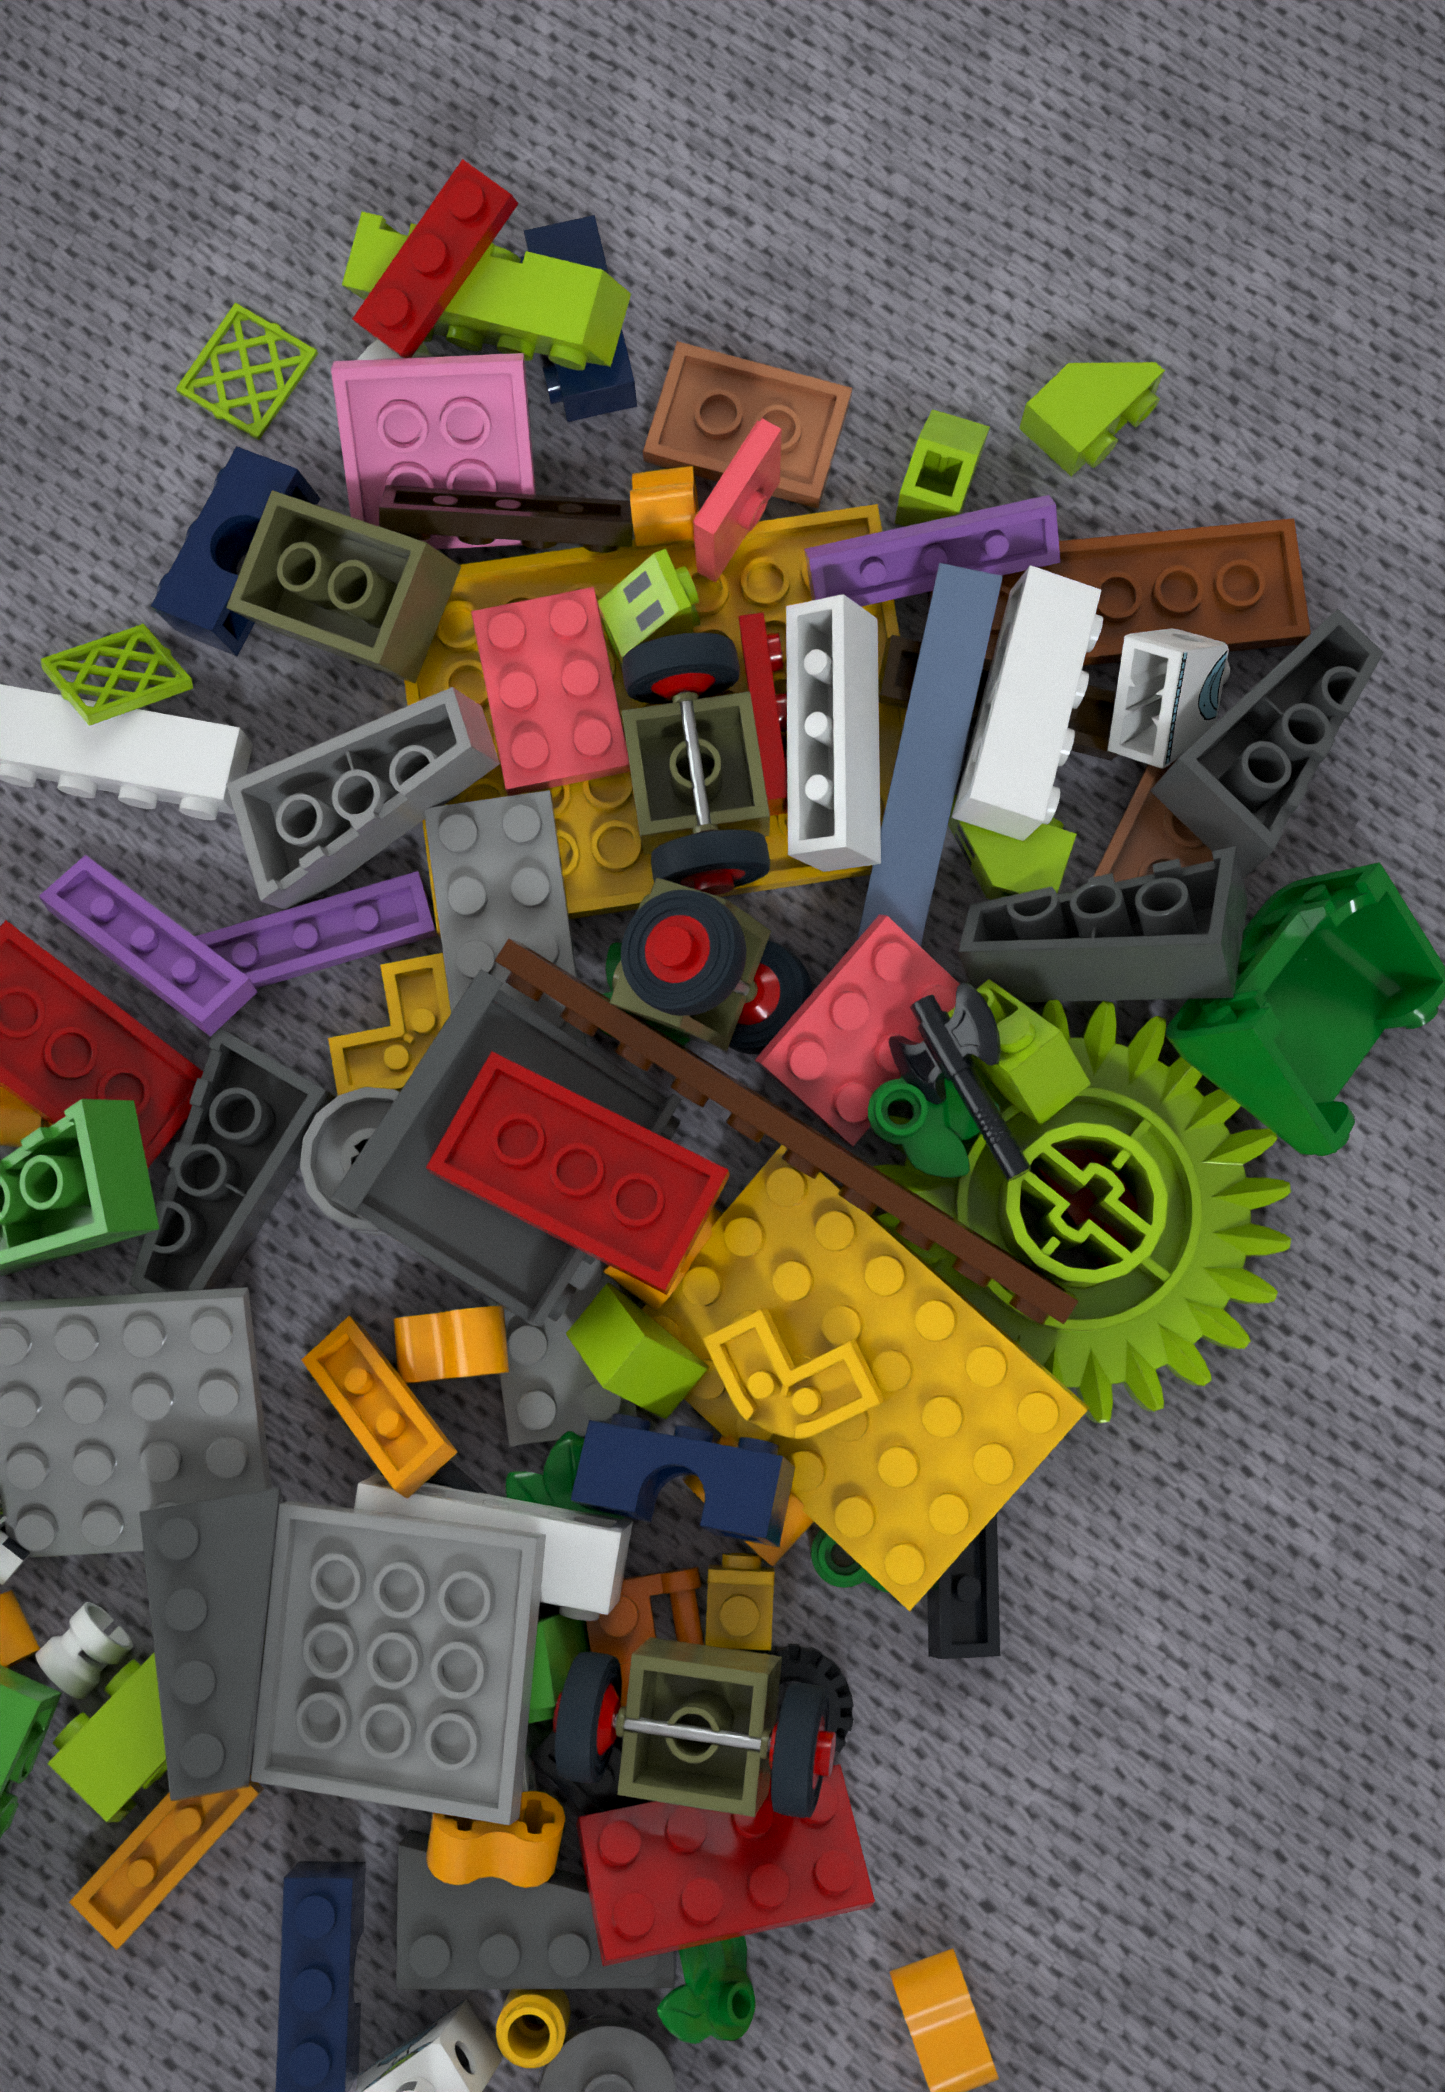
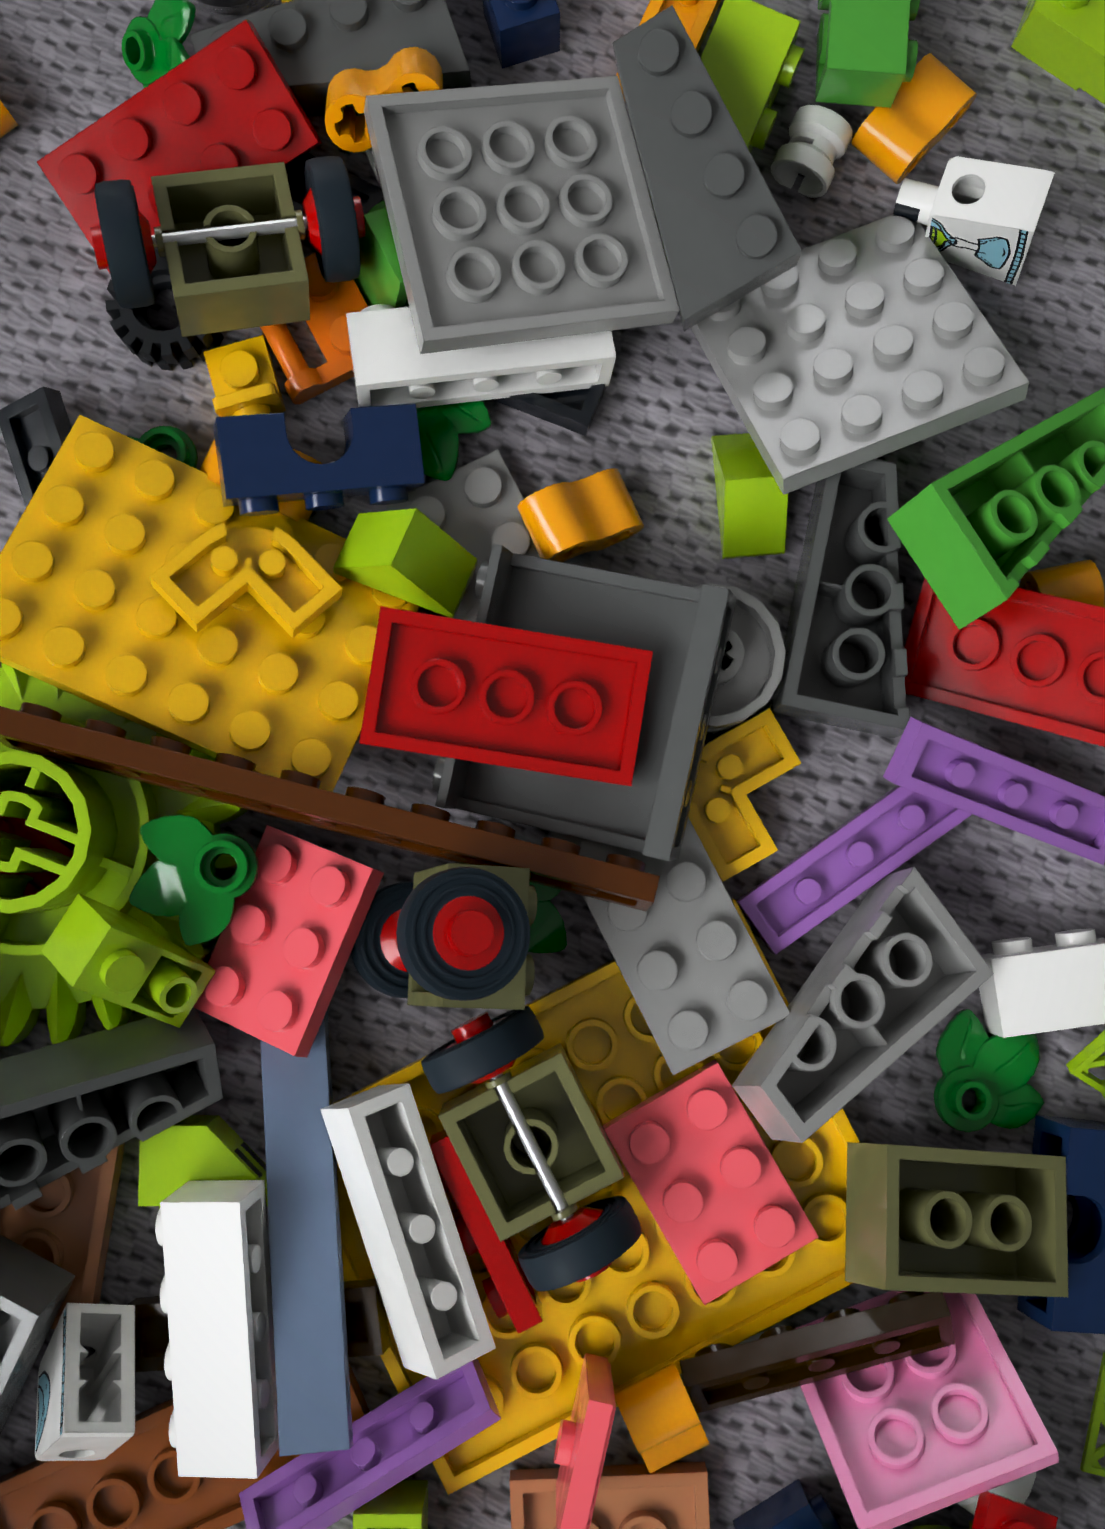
camera: 155 degrees right, 5 degrees up
(260, 707) = (990, 1066): none -> green plate
(283, 1312) = (748, 499): none -> lime slope
(379, 1407) = (624, 435): light orange plate -> none
(649, 605) = (635, 1298): lime slope -> none
(948, 1055) = (184, 936): black piece -> none

